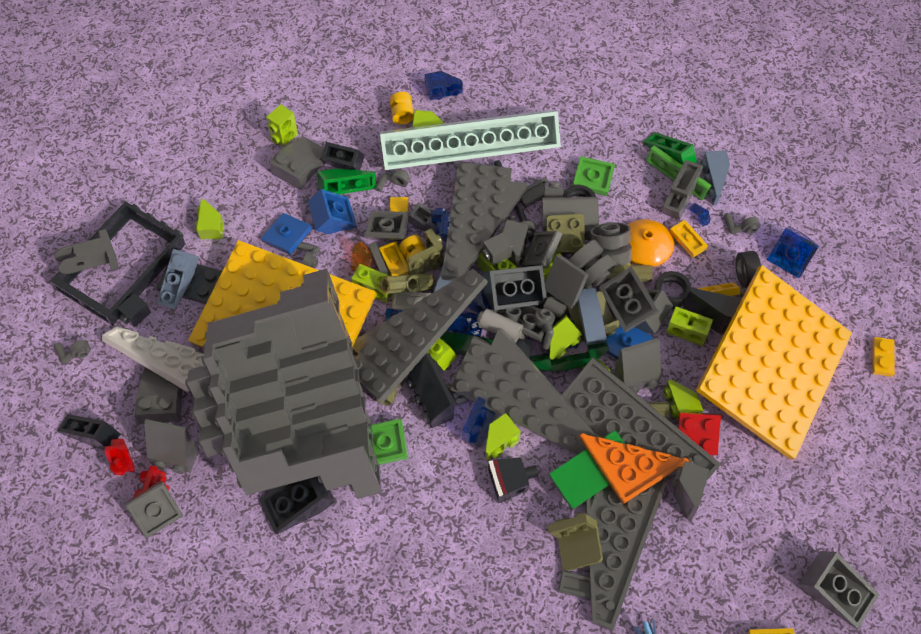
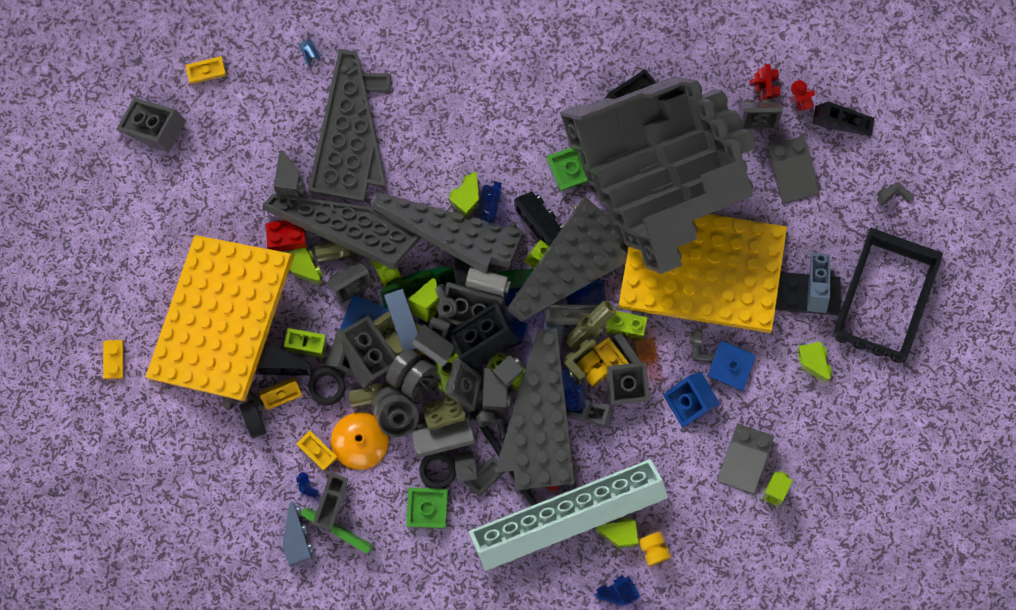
camera: 170 degrees right, 15 degrees up
(87, 255) = (910, 286): dark grey piece -> none
(133, 310) = (851, 245): black brick -> none
(153, 509) = (754, 60): dark grey plate -> none
(165, 359) = (793, 201): white wing -> none
(342, 156) = (700, 465): black brick -> none
(346, 181) = (692, 437): green slope -> none
(399, 178) = (635, 458): dark grey plate -> none
(399, 204) = (625, 426): yellow tile -> none
(510, 477) = (450, 159): black torso -> none
(577, 541) = (379, 111): olive bracket -> none
(581, 476) = (376, 176): green tile -> none
(629, 467) = (343, 182): orange tile -> none
(673, 147) = (349, 559): green slope -> none
(748, 225) = (254, 479): dark grey plate -> none
(793, 251) = (207, 457): clear blue slope -> none

